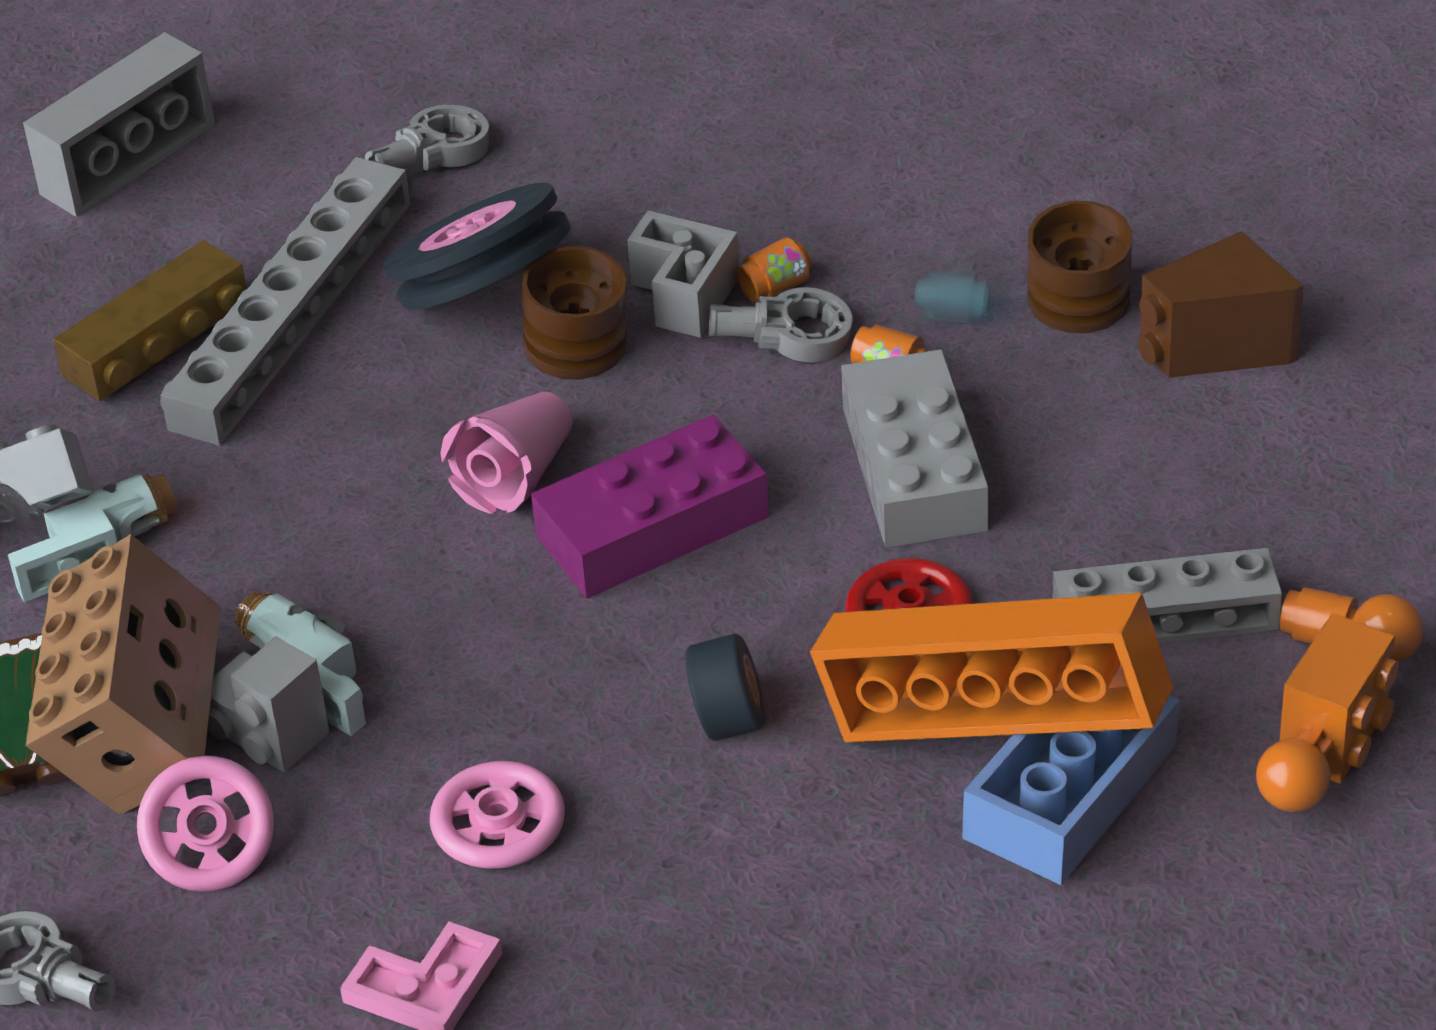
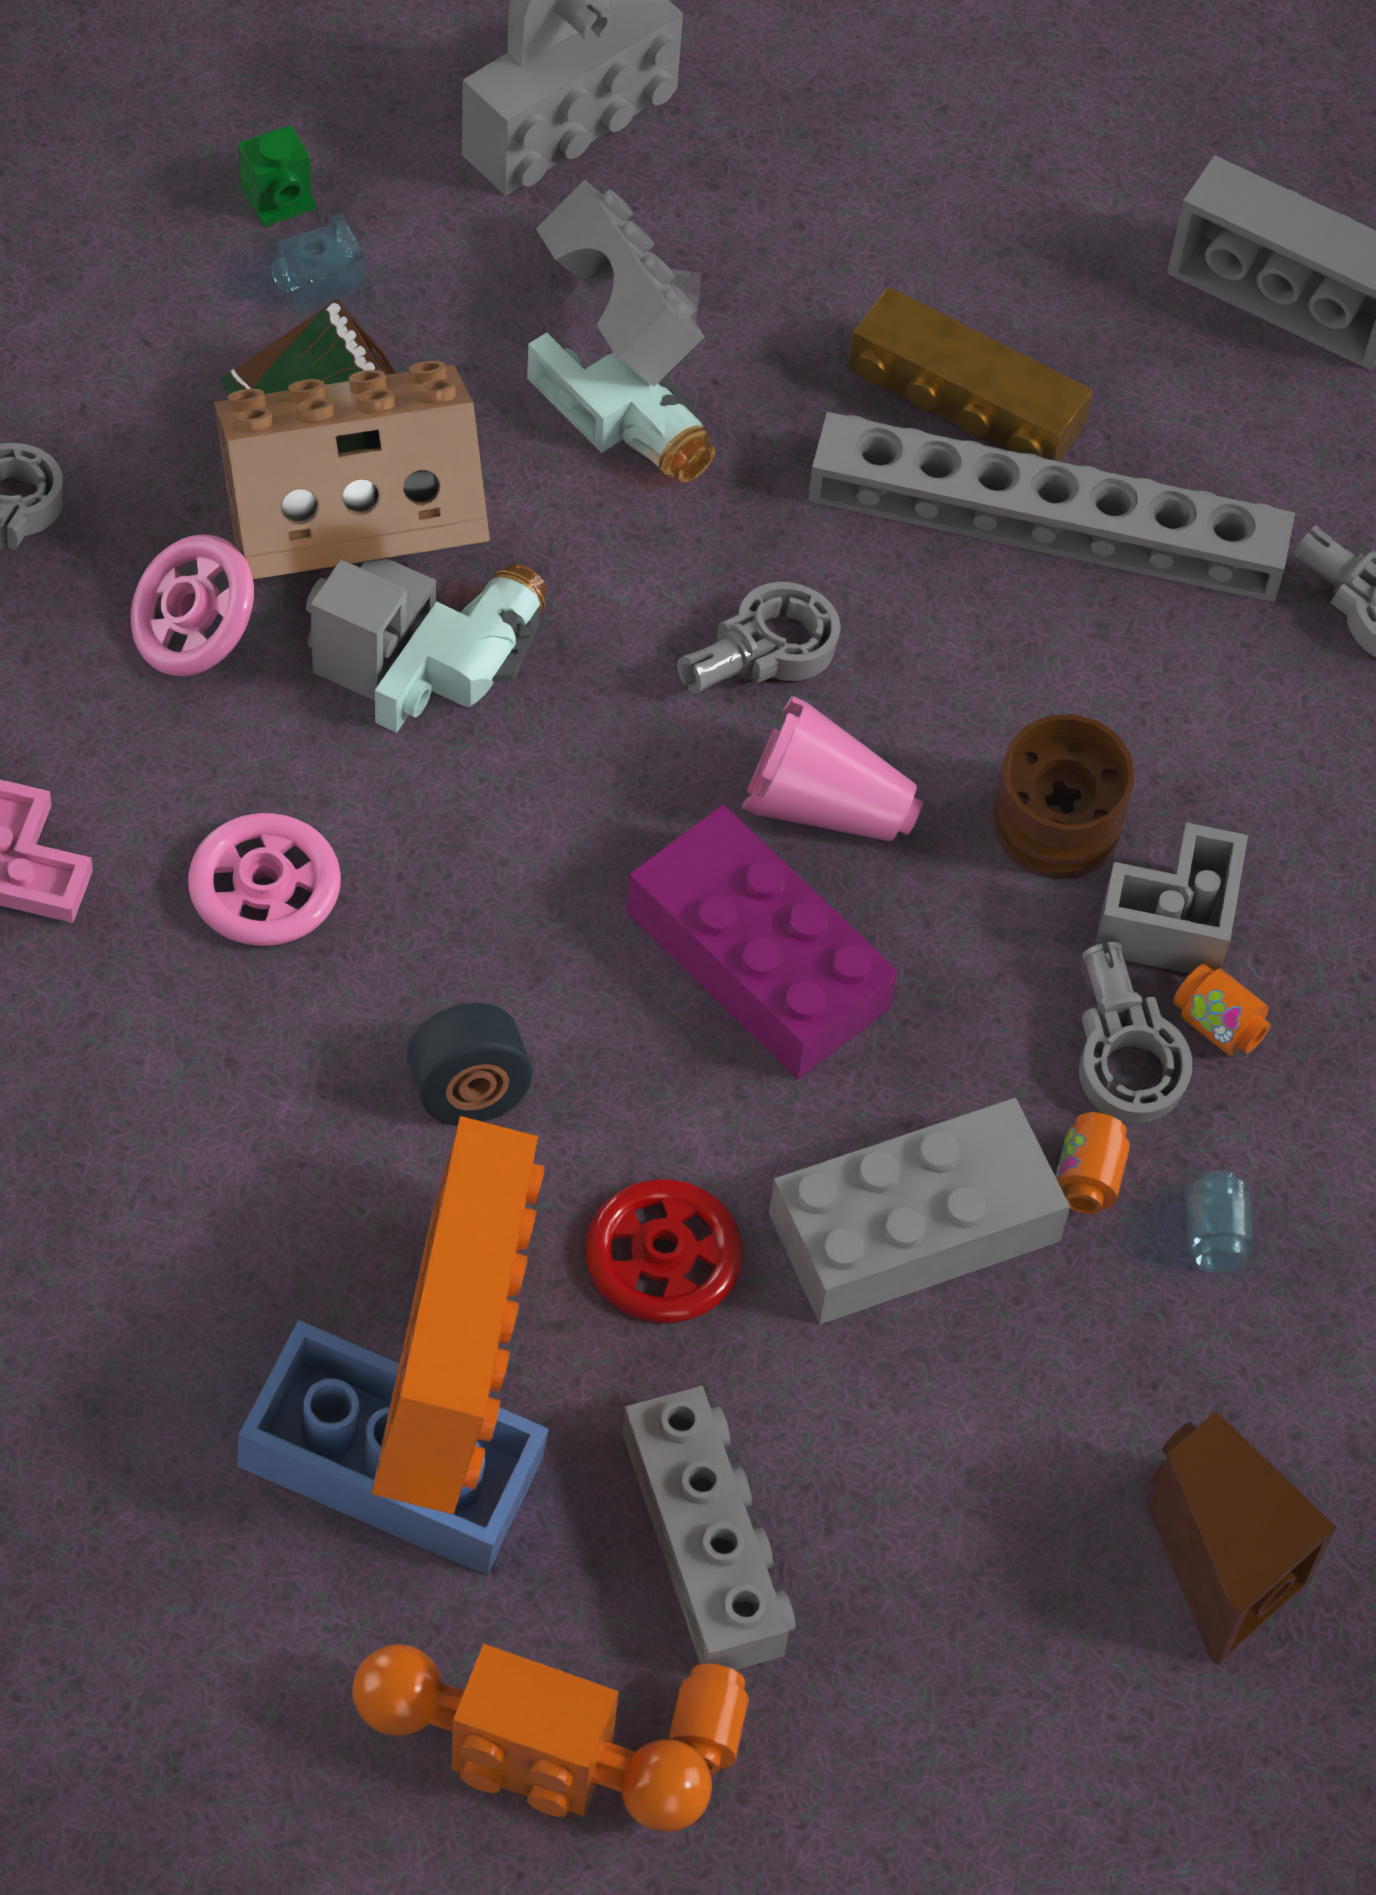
camera: 70 degrees right, 15 degrees up
(360, 479) = (752, 650): none -> light grey pin
(477, 246) = (1137, 666): black wheel -> none
(1079, 266) = (1283, 1322): reddish brown wheel -> none

